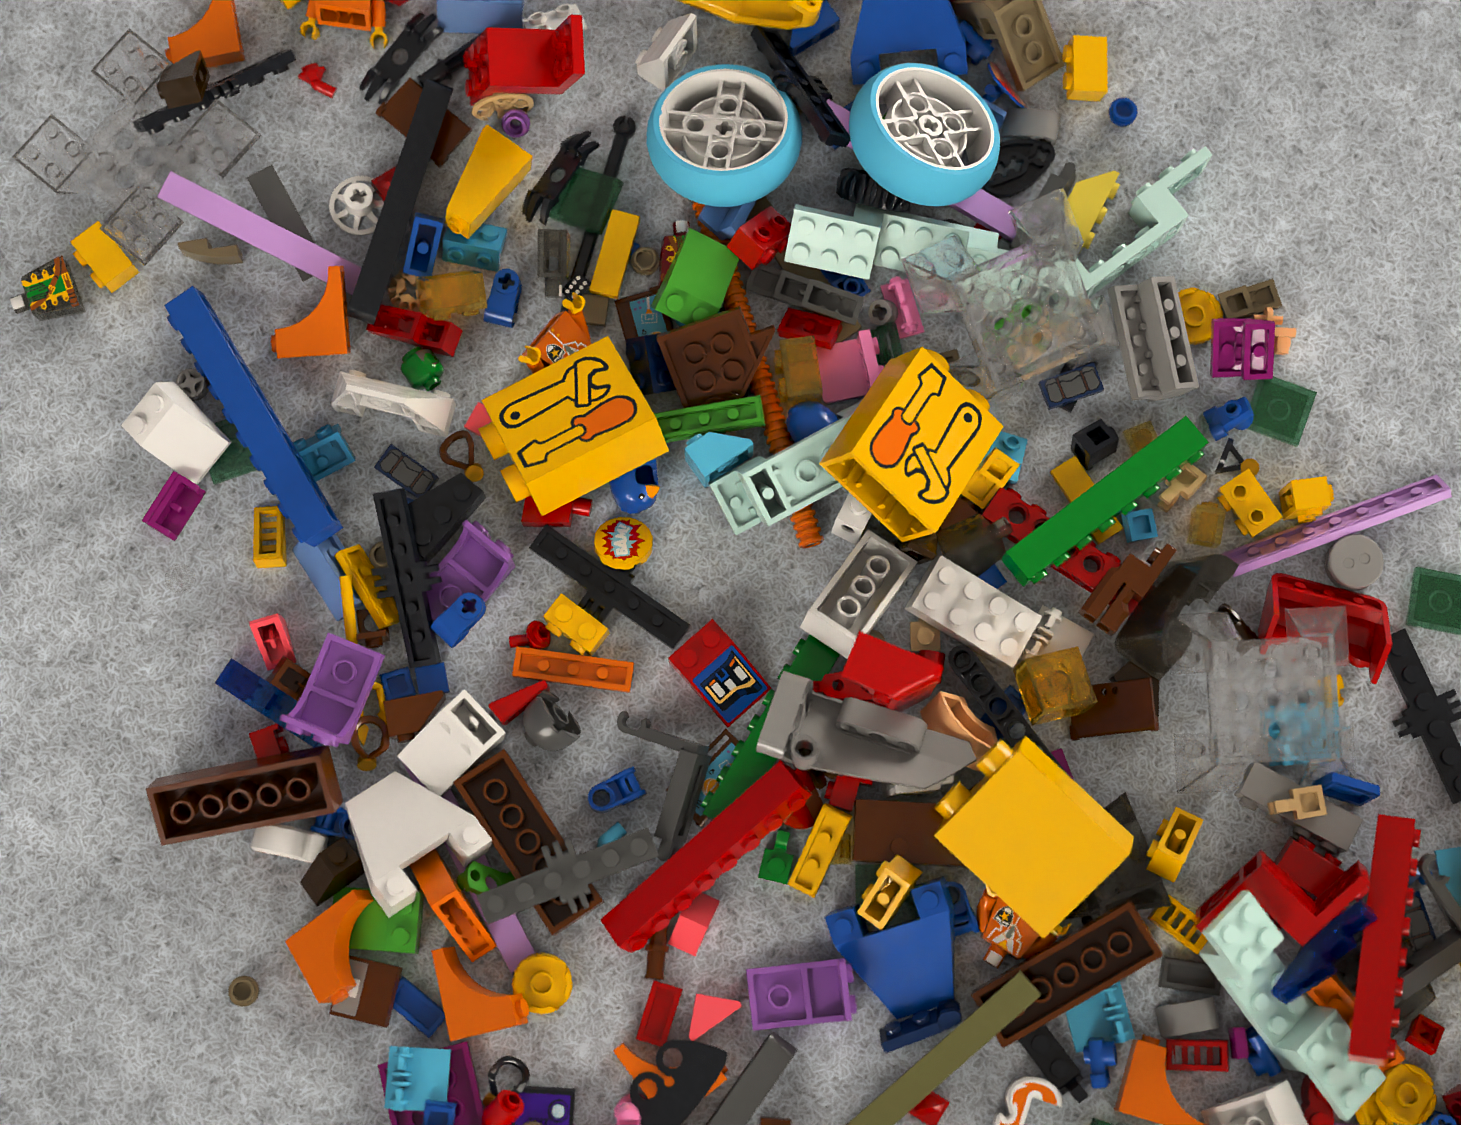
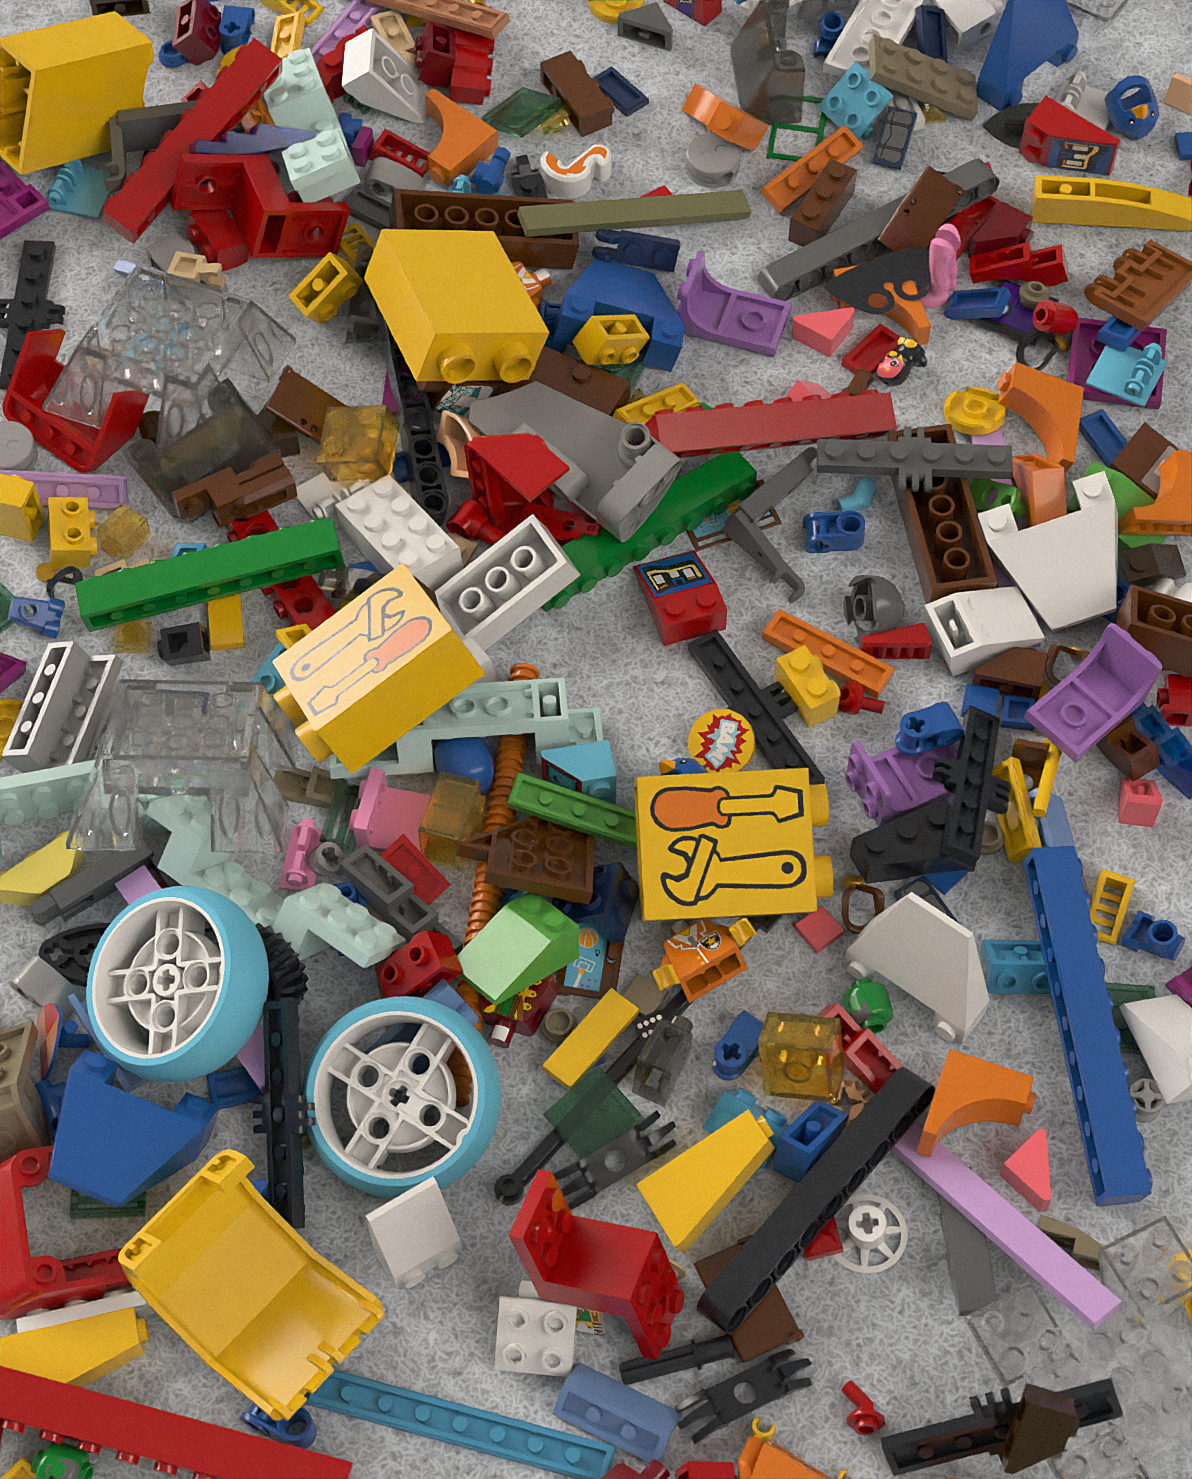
camera: 155 degrees left, 20 degrees down
(233, 524) = (1153, 936): none -> blue plate
(260, 294) = (1029, 1171): none -> coral slope
(582, 1105) = (977, 303): none -> blue tile
(628, 1003) = (898, 363): none -> black animal

